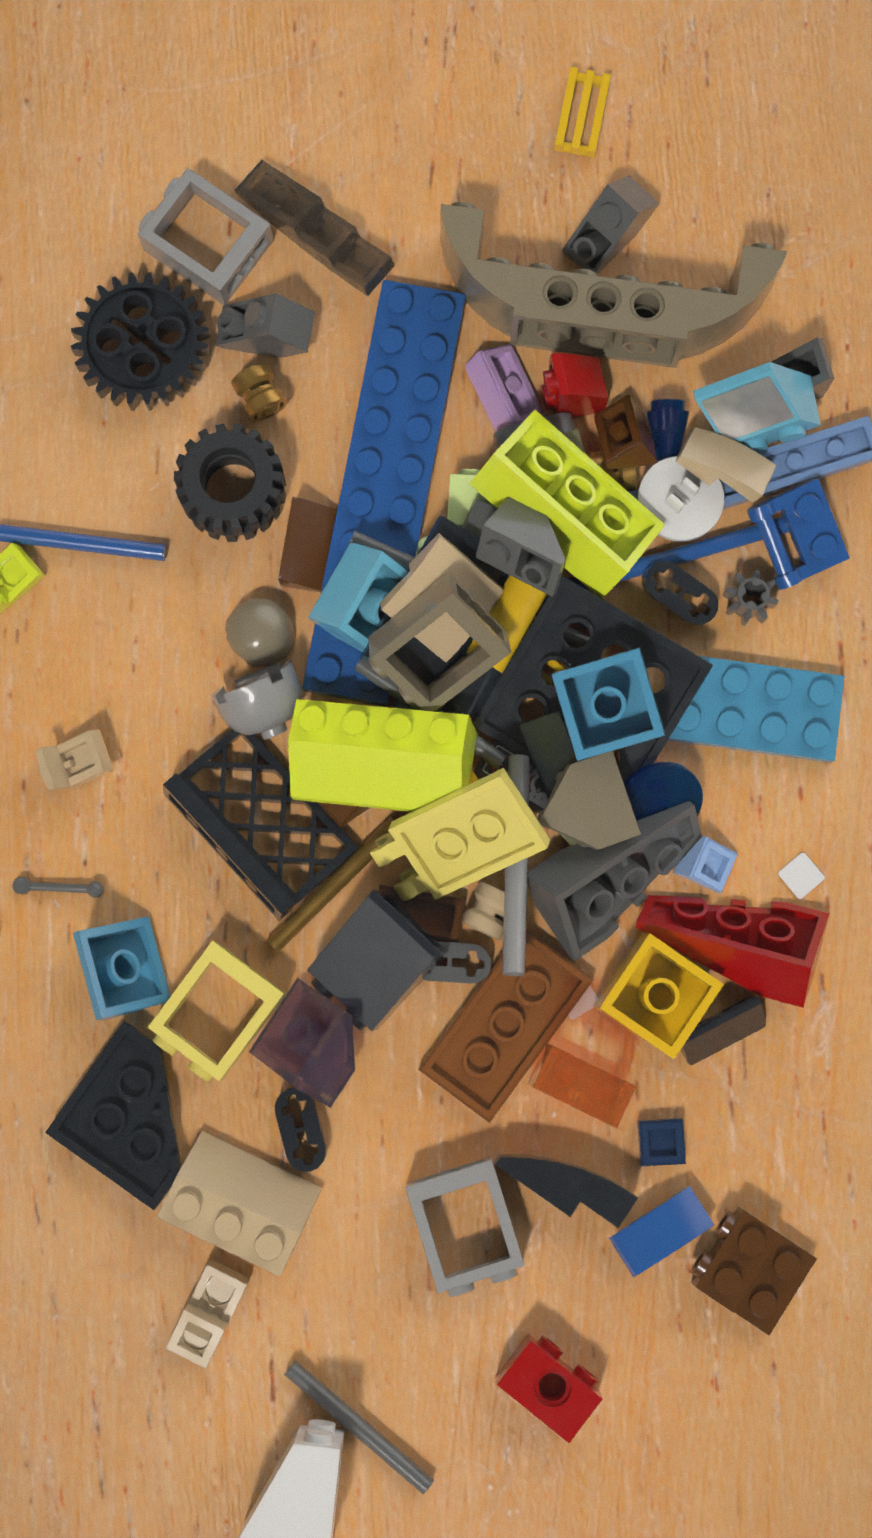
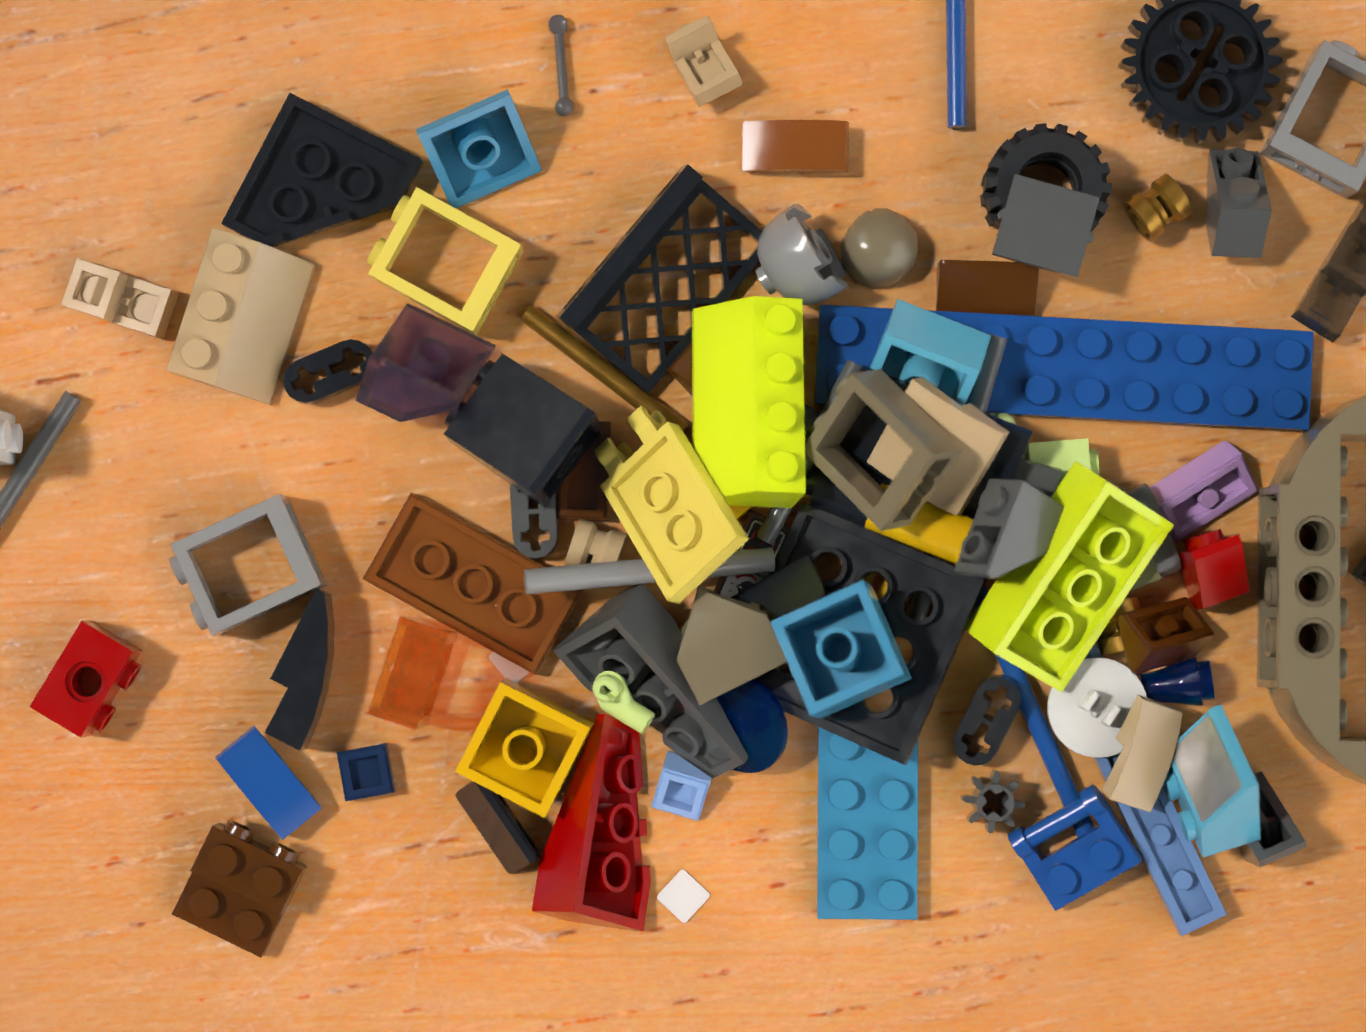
camera: 80 degrees right, 5 degrees up
(160, 691) = (795, 146): none -> dark orange slope
(263, 482) = (1045, 226): none -> dark grey piece
(626, 908) = (617, 701): none -> yellowish green arm

